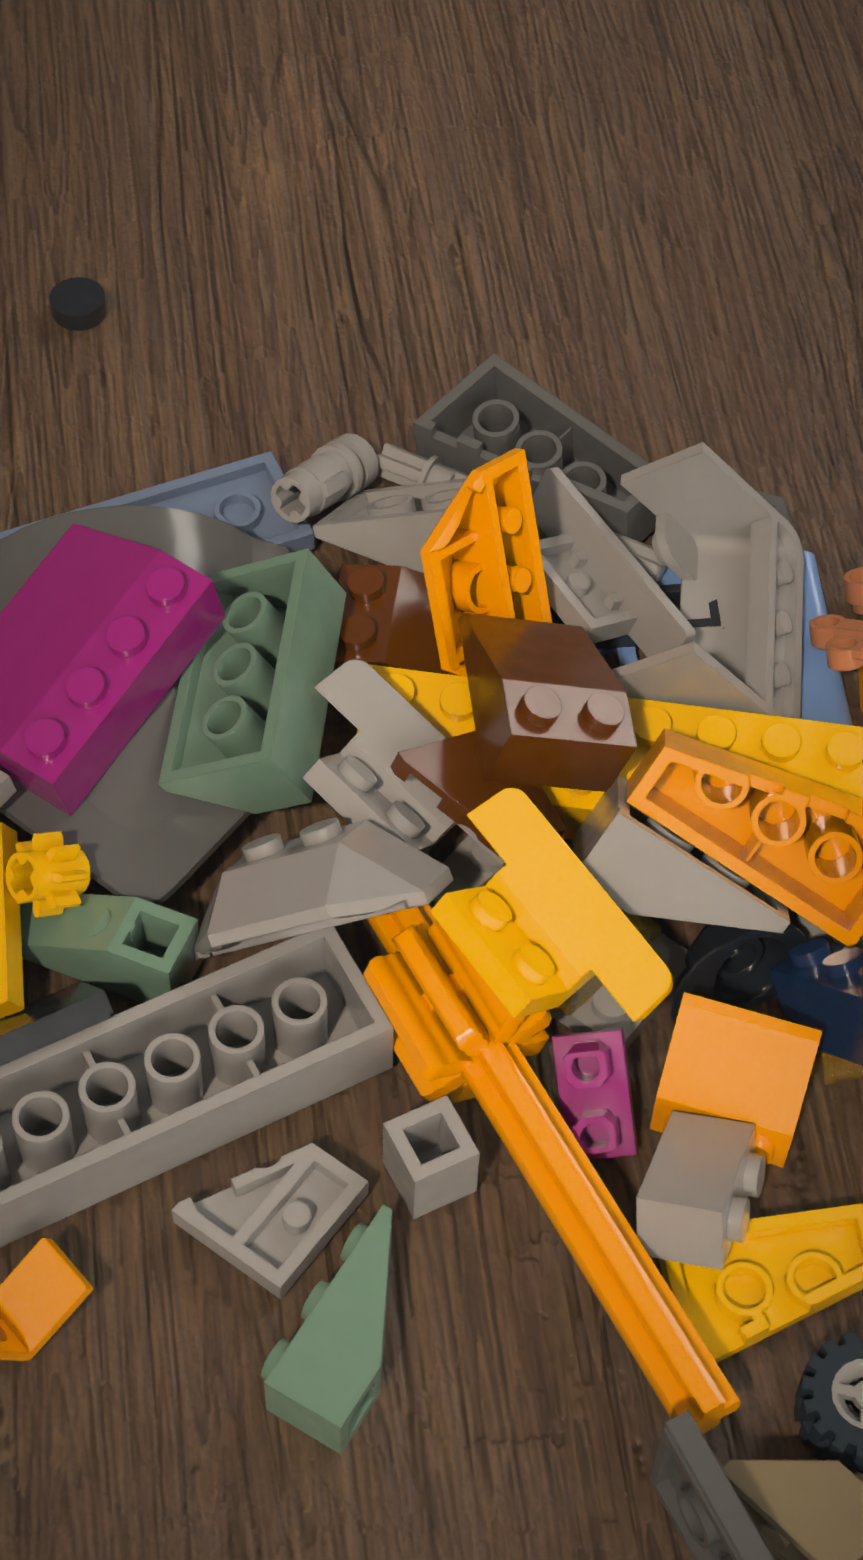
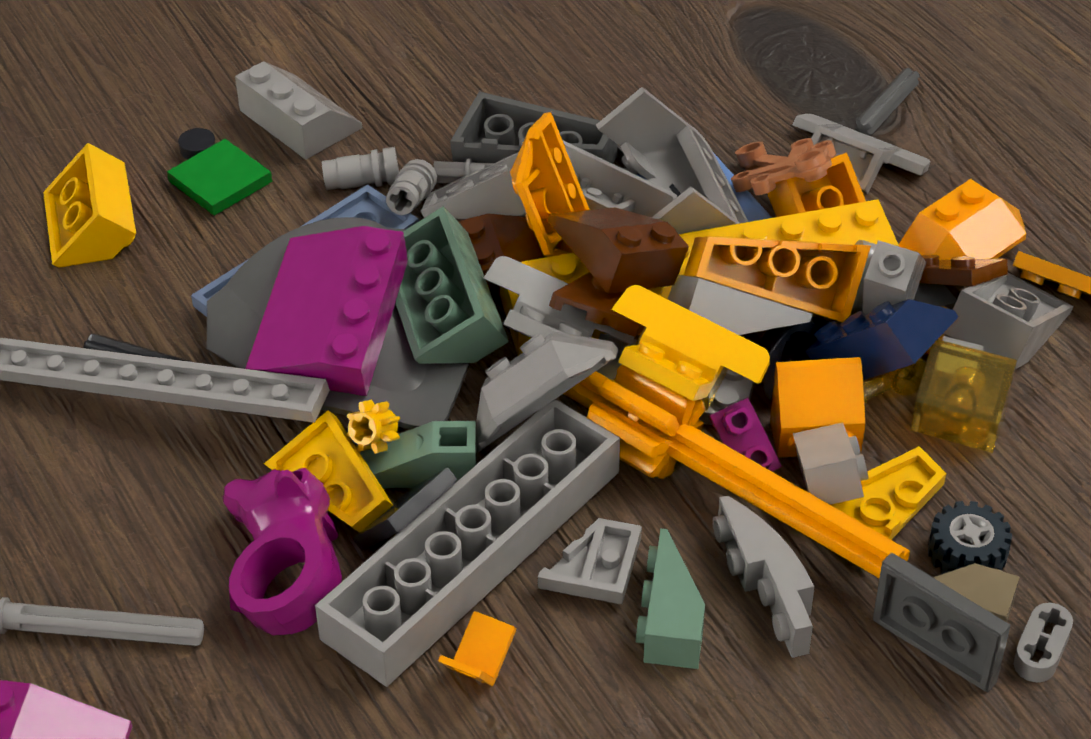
camera: 20 degrees left, 10 degrees down
(81, 366) = (219, 176): none -> green tile
(238, 289) = (292, 110): none -> light grey slope
(276, 422) = (361, 170): none -> light grey axle
(430, 1157) = (671, 499): light grey brick -> none
(525, 1330) = (772, 567): none -> light grey slope

